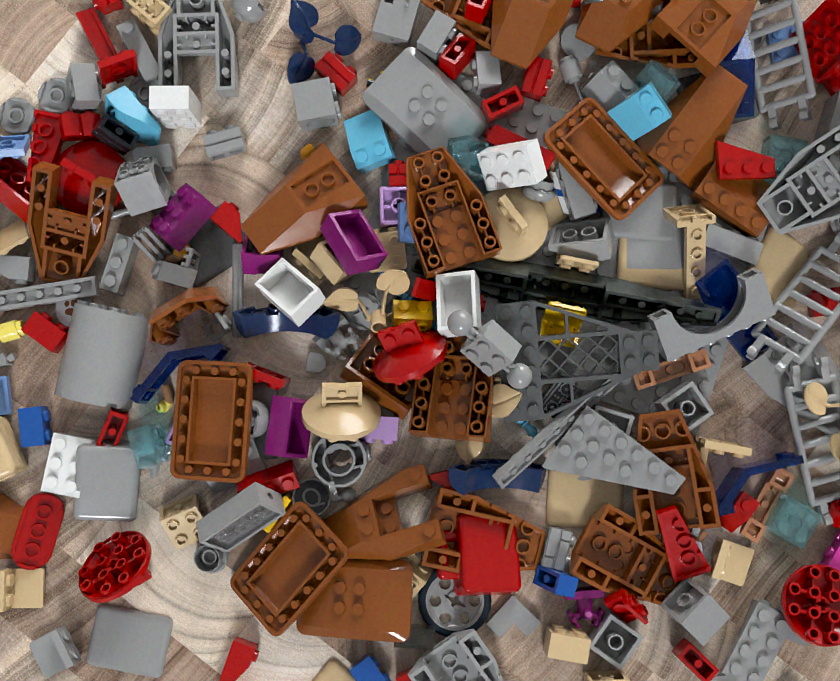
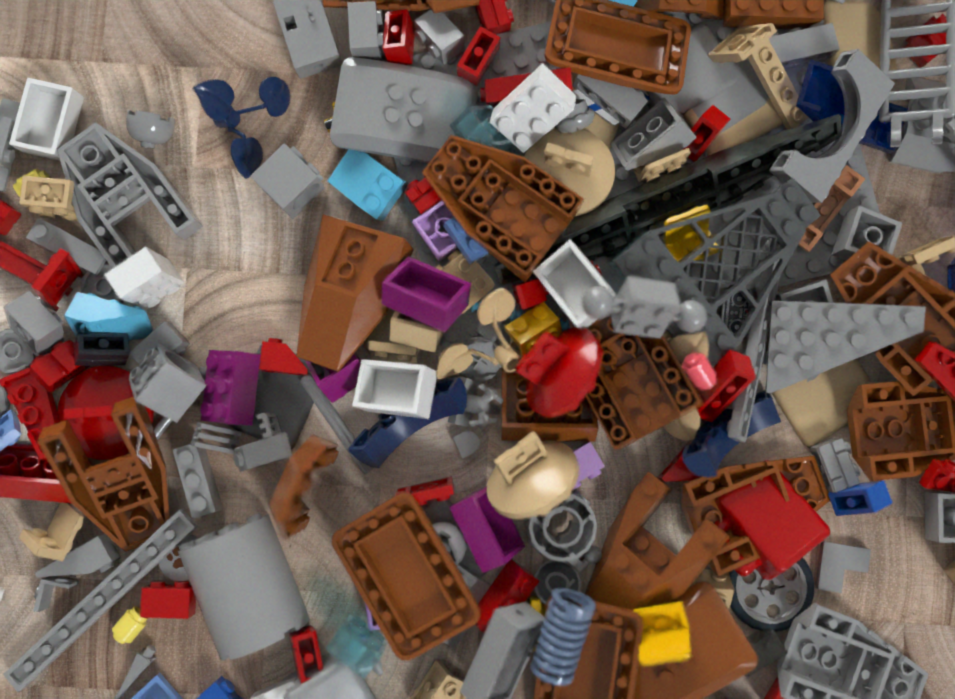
camera: 35 degrees left, 0 degrees up
(144, 392) = (313, 595): clear blue windscreen -> none
(167, 401) = (342, 585): arm -> none
(176, 256) = (250, 432): arm -> none
(220, 319) = (346, 465): light grey bracket -> none
(224, 143) = (220, 282): light grey brick -> none
(287, 531) = (562, 636): none -> sand blue piece
(308, 149) = (311, 232): light orange arm -> none
(338, 73) = (279, 131): red brick -> none
(357, 575) = (664, 634): none -> yellow bracket
(499, 416) = (699, 370): none -> coral brick
(513, 439) = (732, 376): none -> red brick
(566, 643) = (914, 554): tan brick -> none
(584, 606) = (904, 505): magenta piece -> none
(622, 260) = (706, 131): none -> red slope

